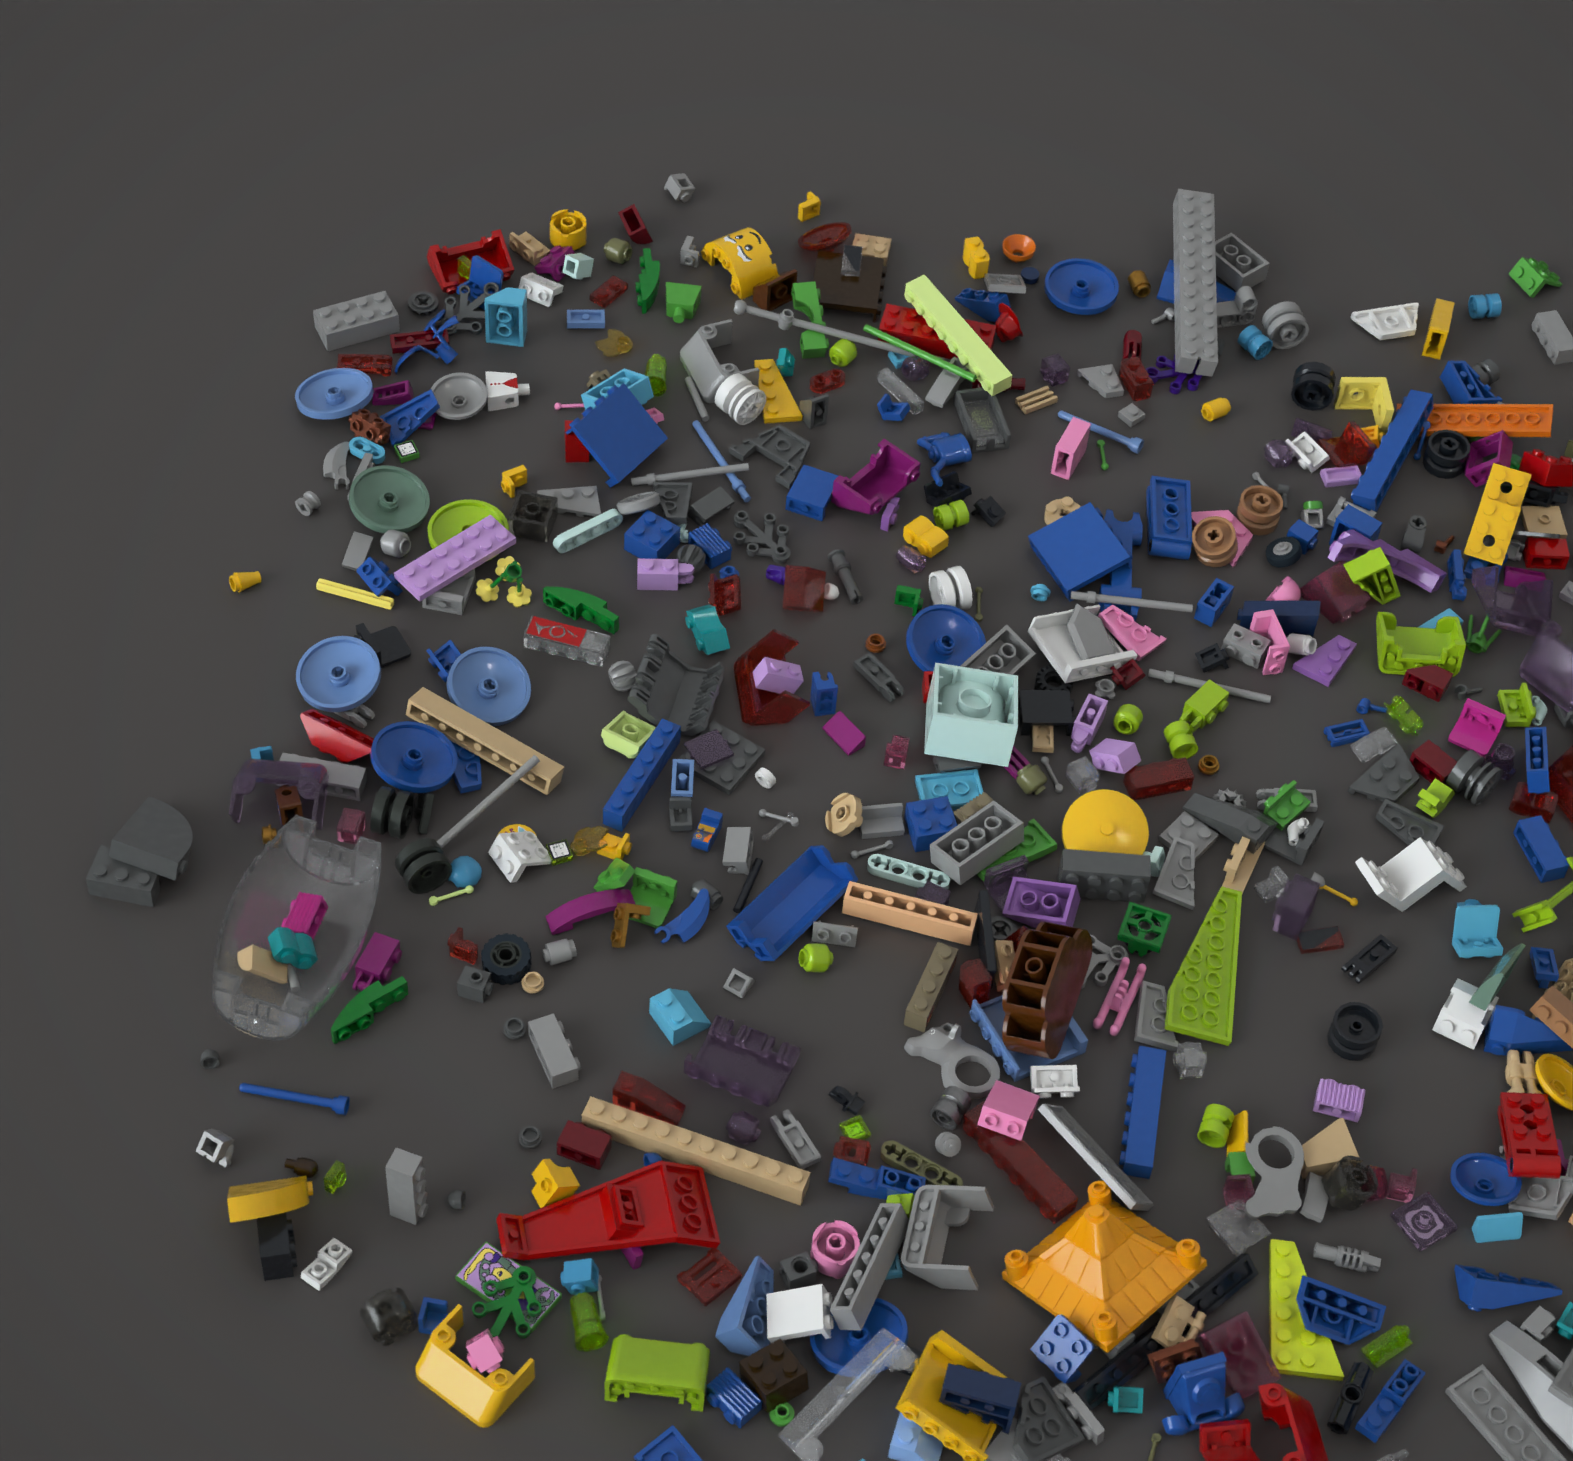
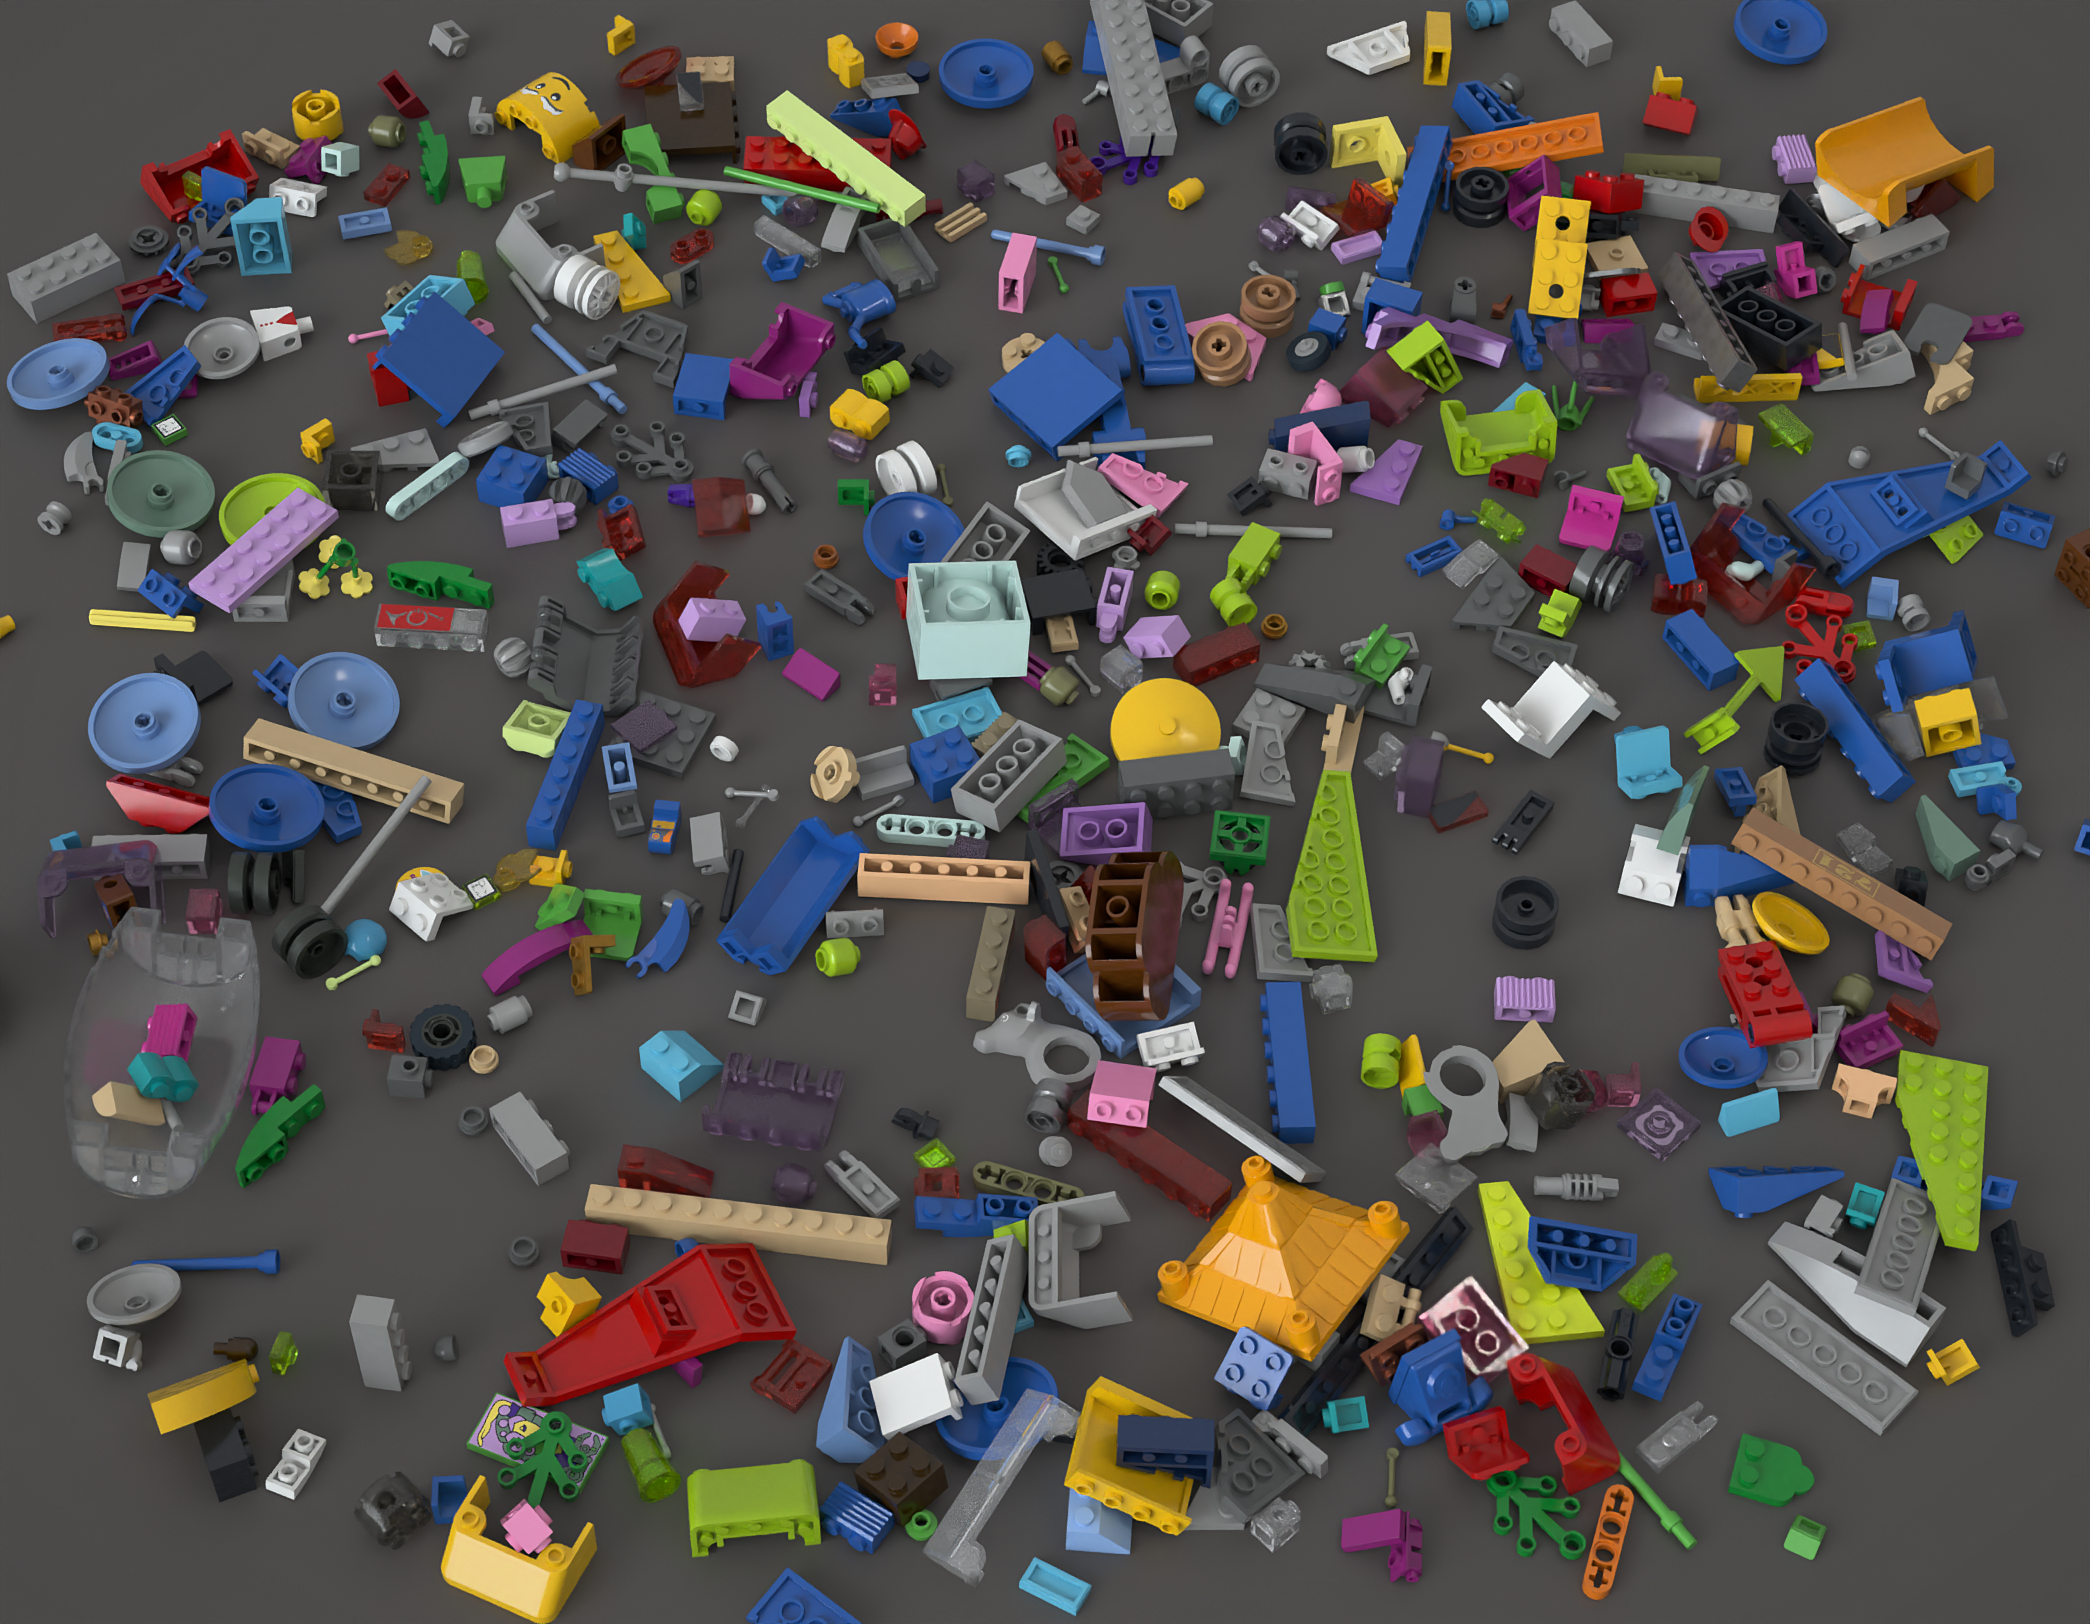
camera: 10 degrees left, 0 degrees up
(236, 1109) = (134, 1294): none -> light grey dish
(1213, 602) = (1236, 428): blue brick -> none

